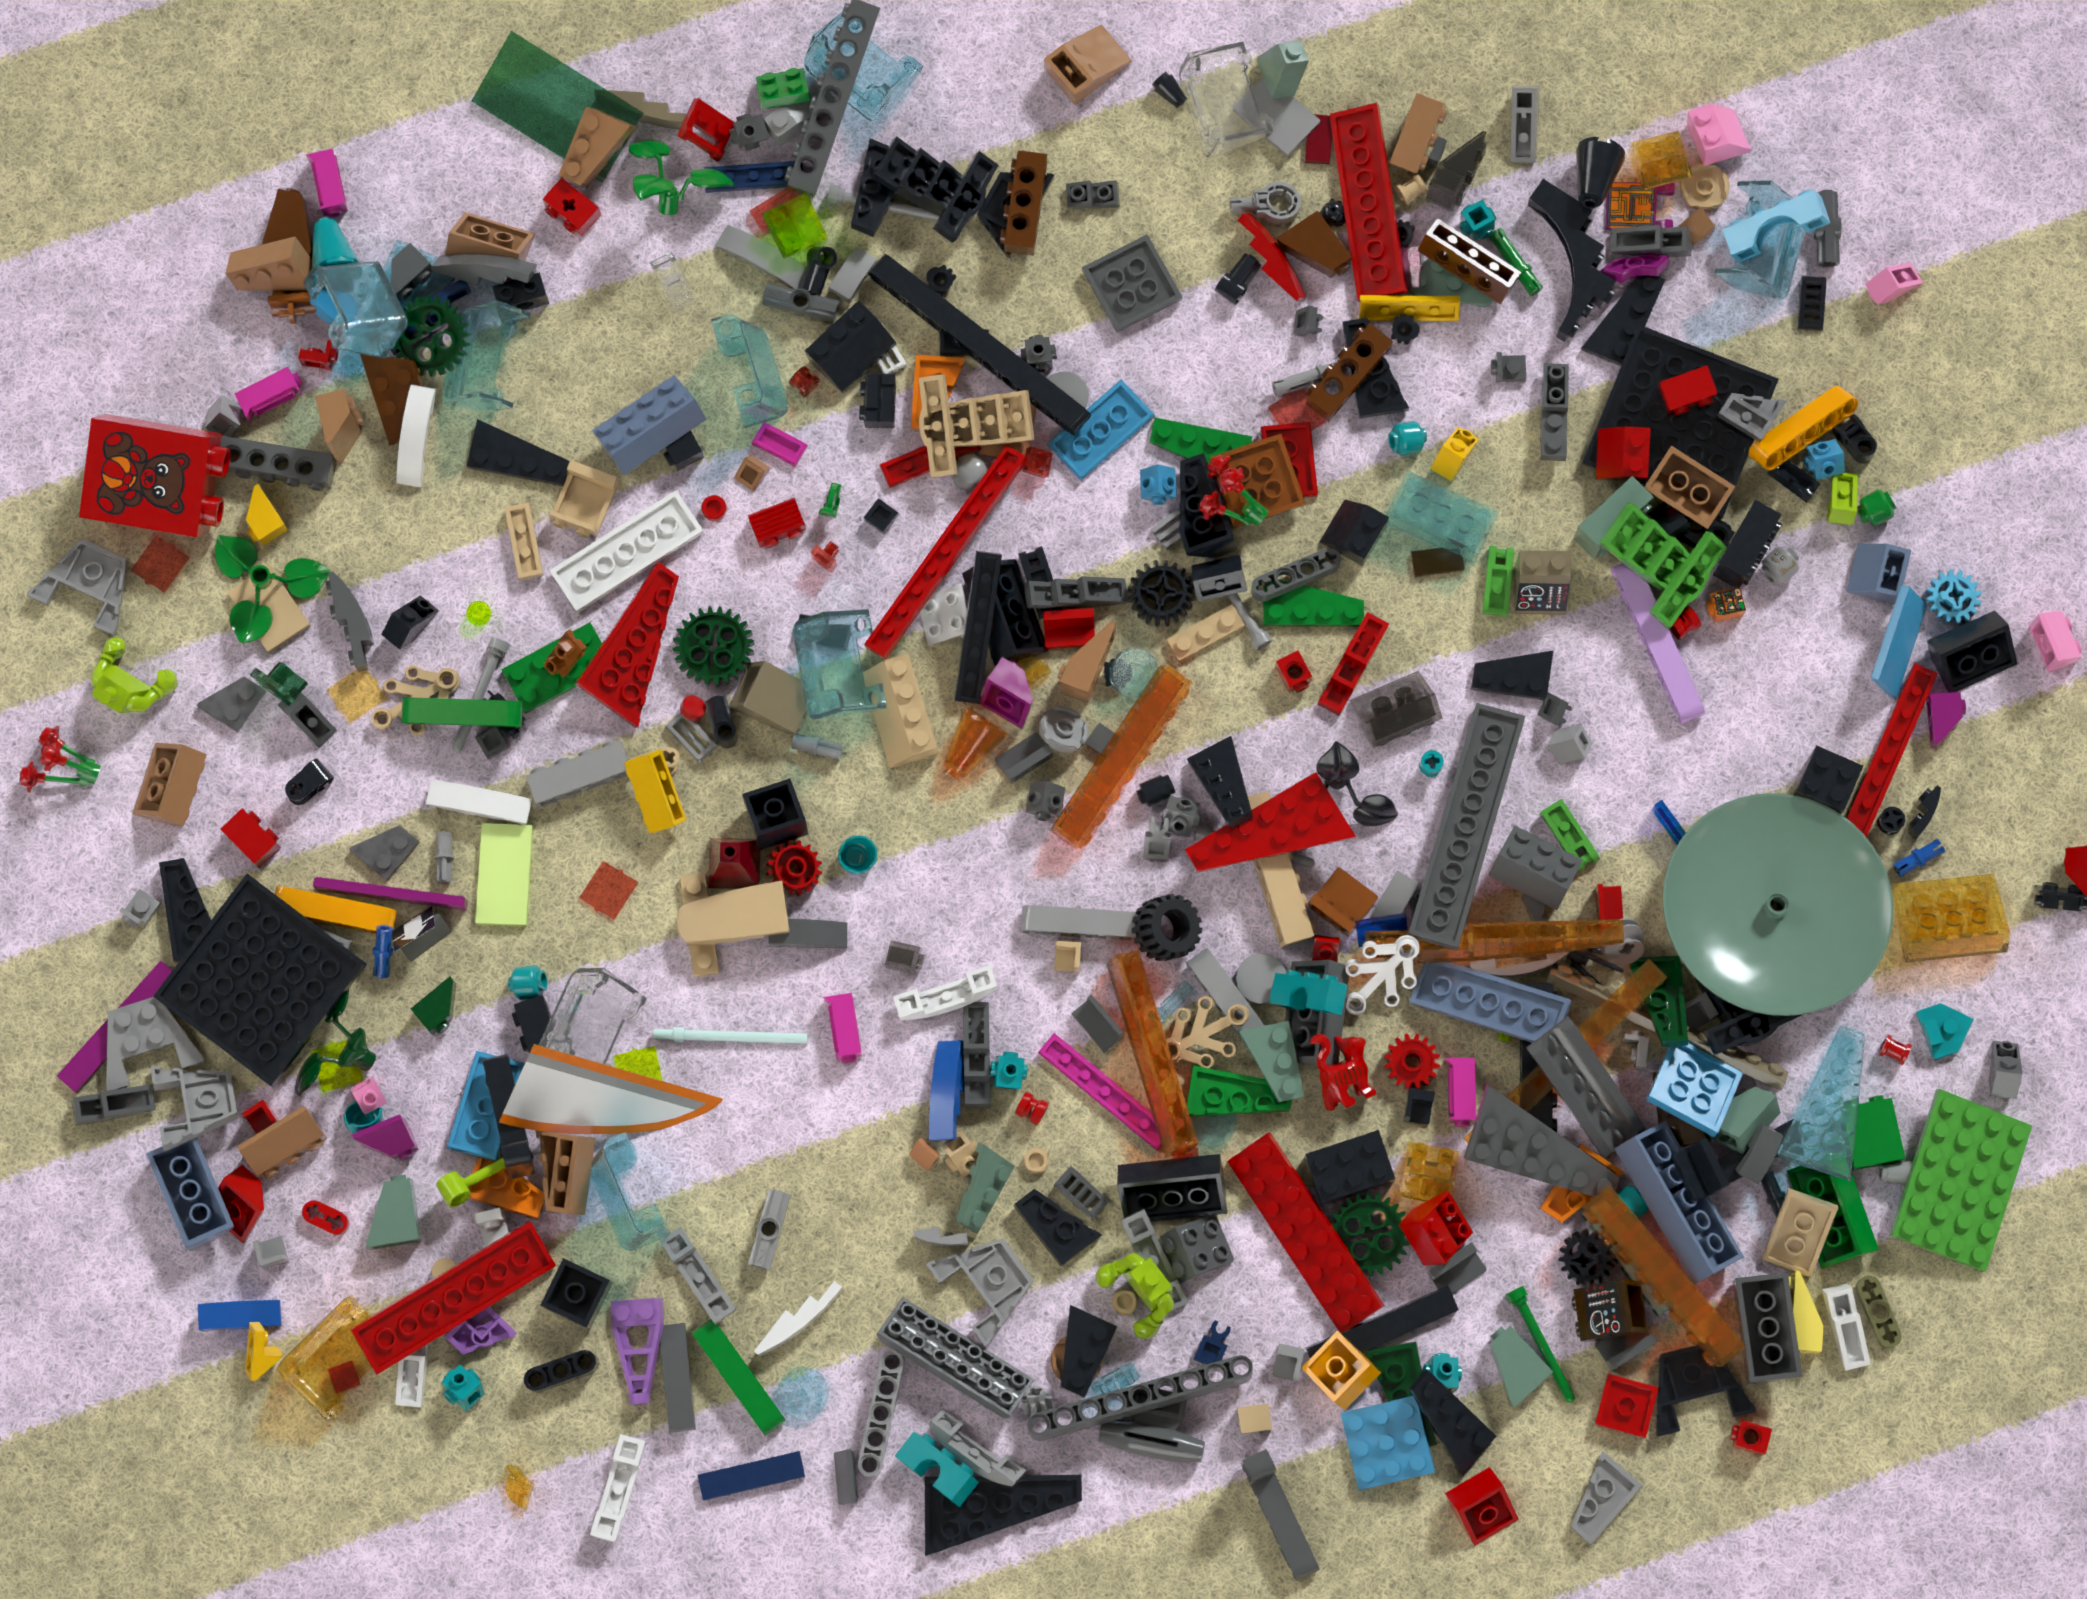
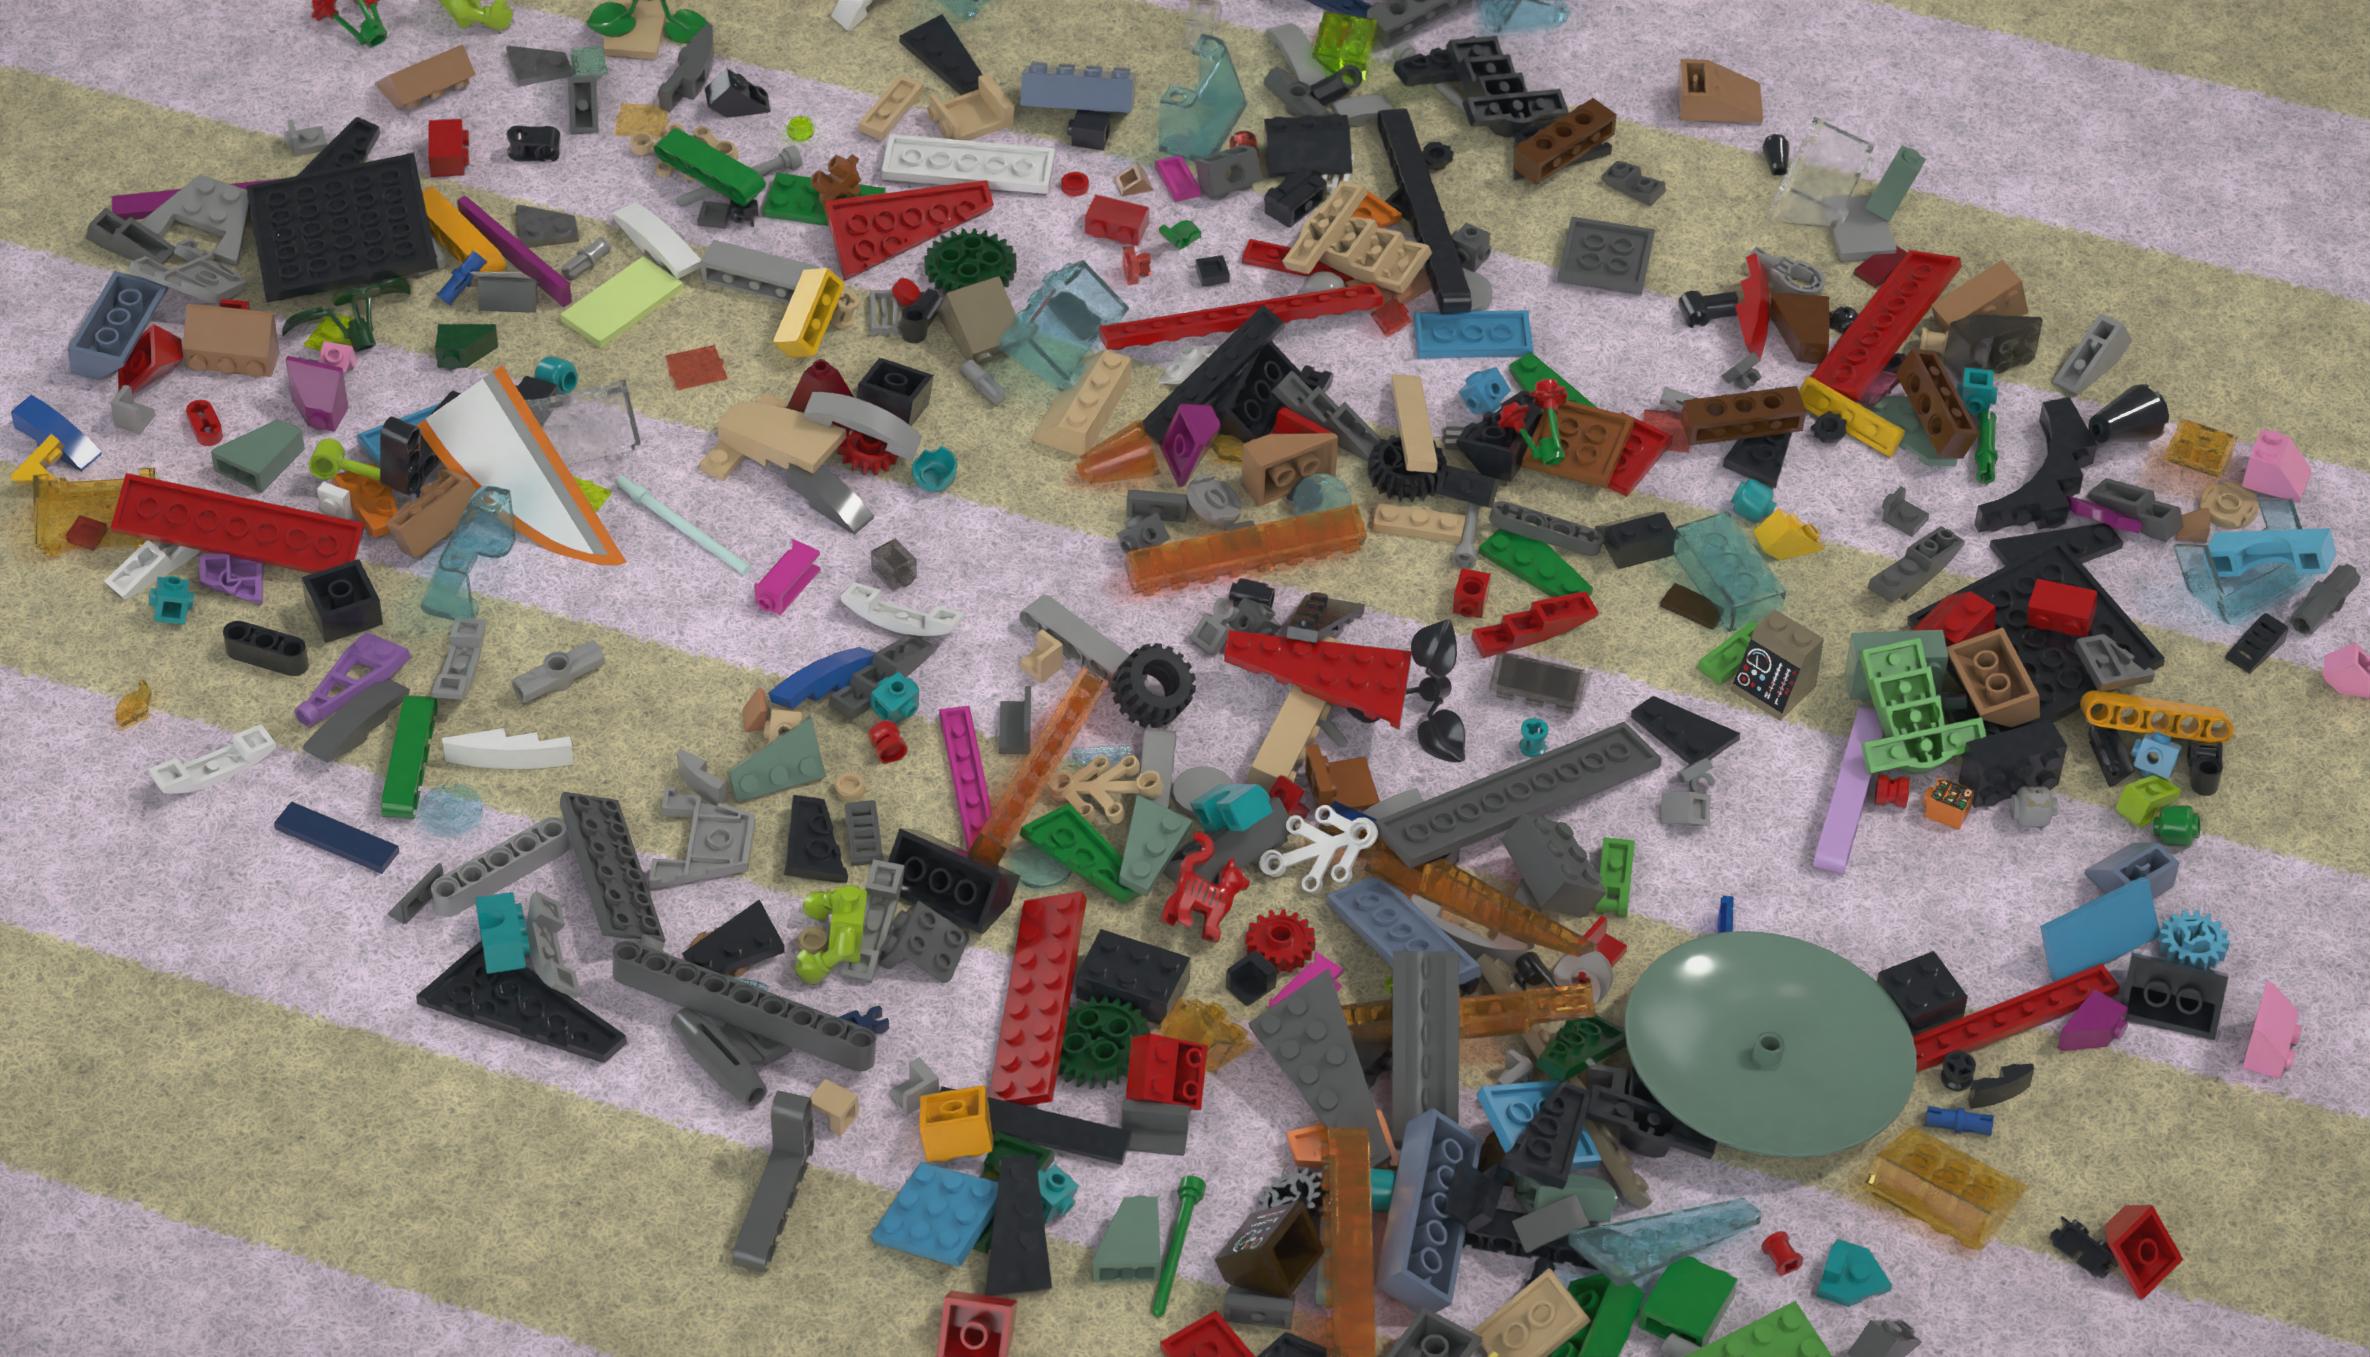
camera: 35 degrees right, 30 degrees down
(786, 865) = (865, 418): none -> light grey slope
(816, 416) = (1213, 171): none -> dark grey brick
(1141, 556) = (1413, 423): none -> tan tile
(1633, 206) = (2149, 473): flag -> none
(1717, 1098) = (1551, 1137): none -> black wing

